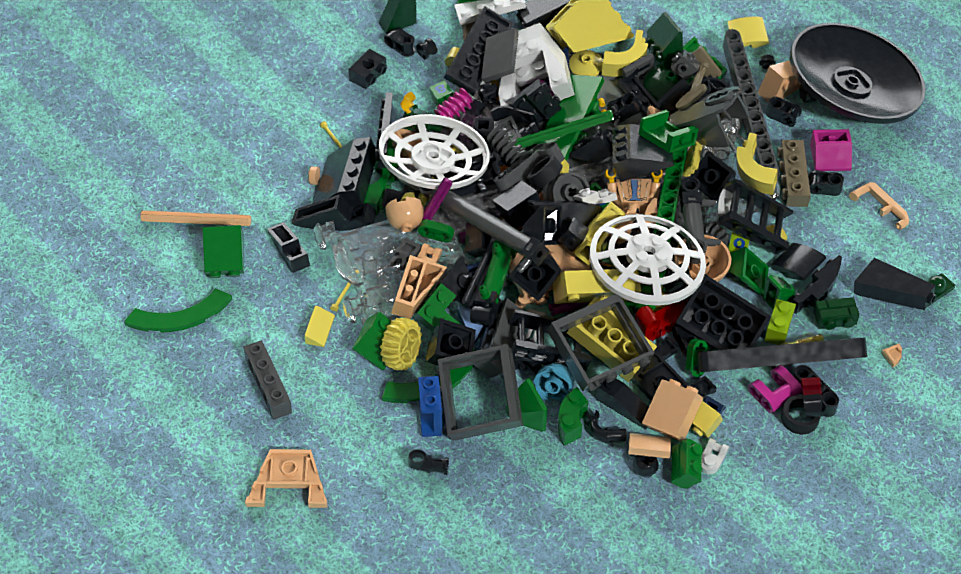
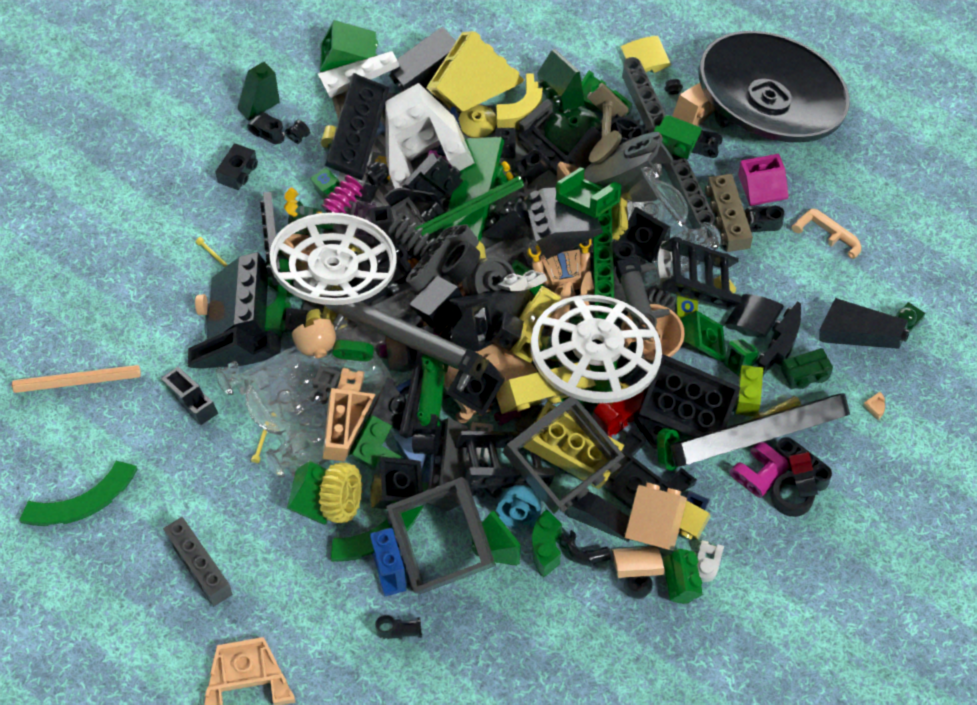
camera: 10 degrees left, 5 degrees up
(223, 251) = (117, 415): green slope -> none
(319, 327) = (243, 486): light yellow slope -> none
(437, 199) = (348, 315): magenta axle -> none
(500, 55) = (383, 129): dark grey tile -> none
(608, 88) = (509, 145): none -> black brick
(684, 64) = (588, 107): dark grey brick -> none
(751, 173) = (688, 226): light yellow arch -> none
(760, 100) = (678, 136): none -> green bracket

